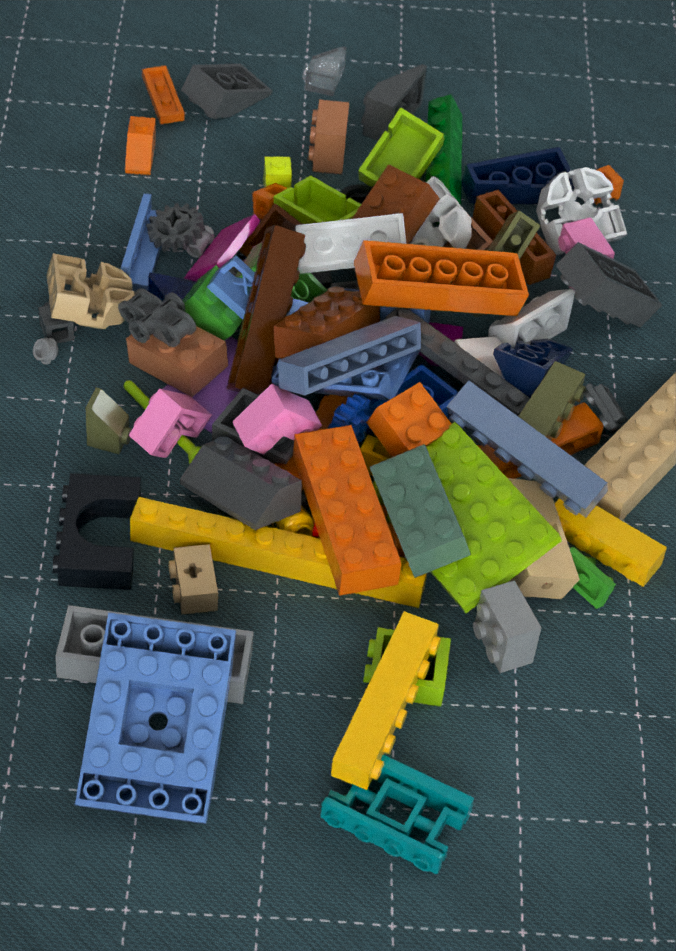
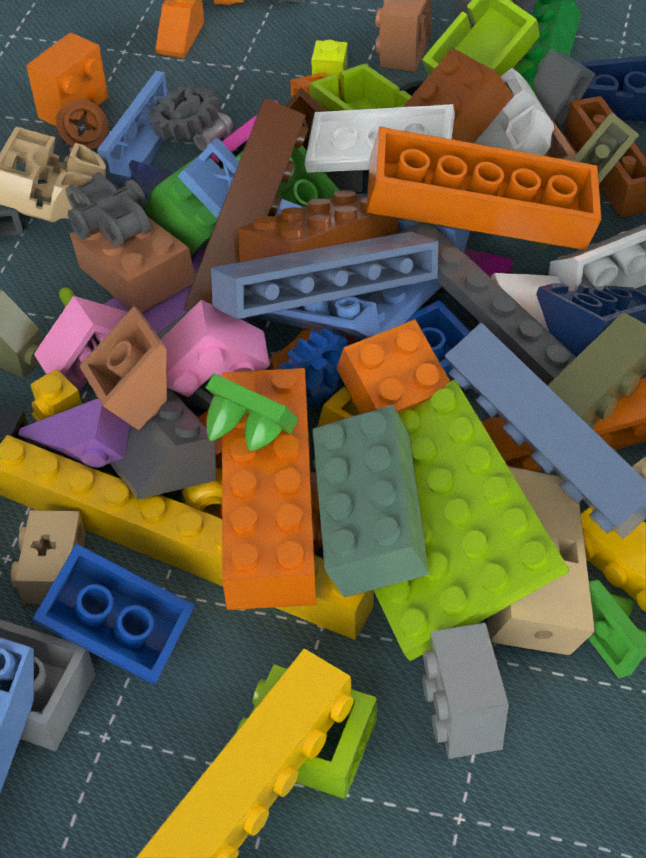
camera: 20 degrees right, 0 degrees up
(72, 208) = (67, 73): none -> orange brick
(100, 237) = (94, 119): none -> dark orange gear
(159, 470) = (53, 395): none -> yellow brick
(201, 489) = (81, 434): none -> medium lavender slope
(232, 437) = (129, 370): none -> nougat slope
(263, 606) = (114, 614): none -> blue slope
(316, 454) = (232, 402): none -> bright green tile
(467, 182) = (558, 83): none -> dark grey slope

